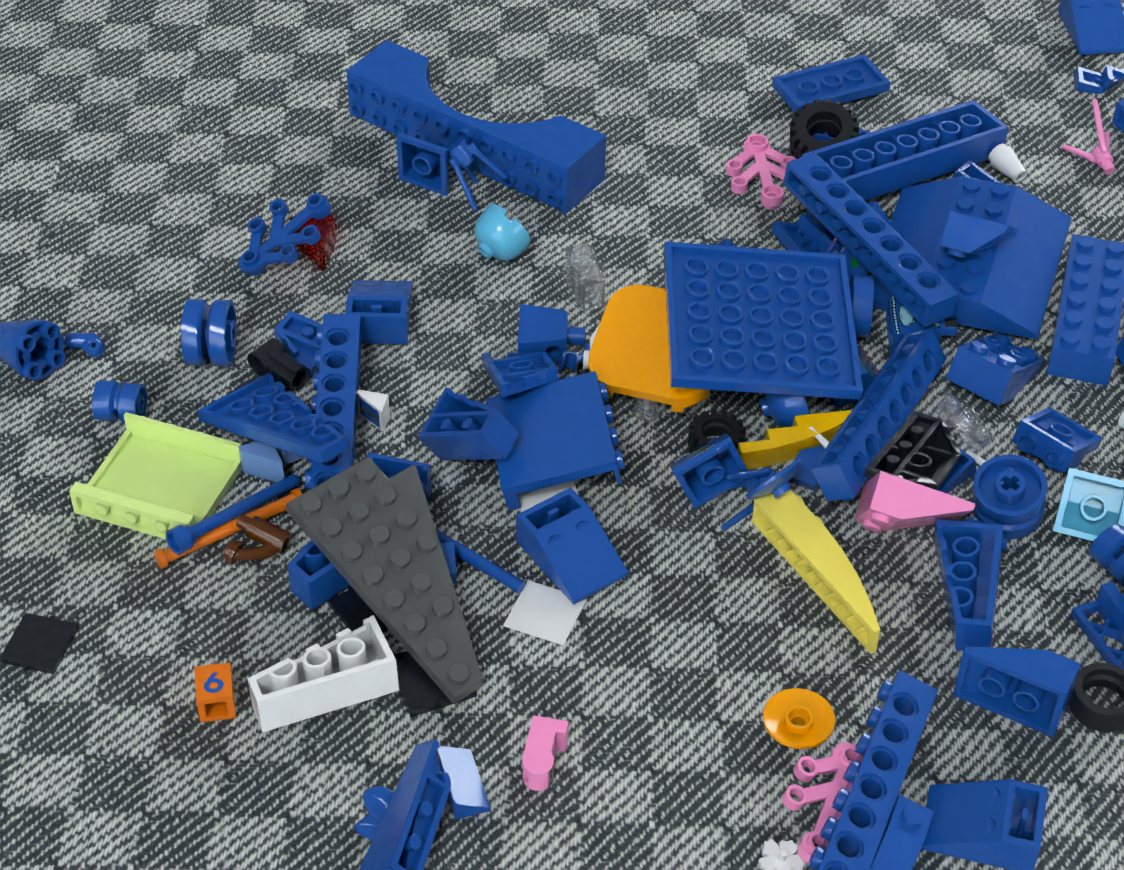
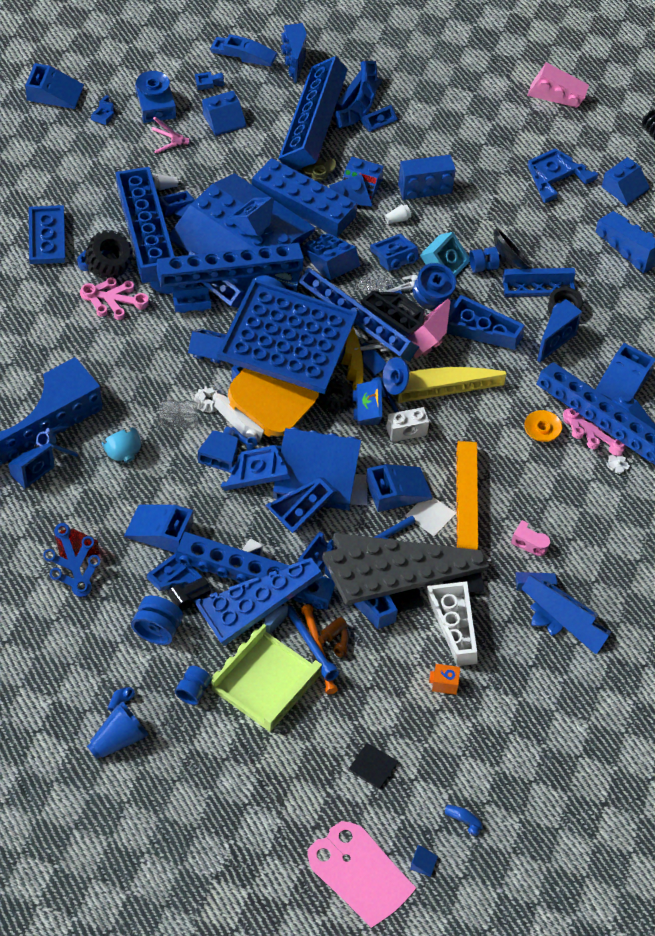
camera: 75 degrees left, 10 degrees up
(592, 644) = (467, 495): none -> light orange beam
(701, 532) = (407, 424): none -> white brick

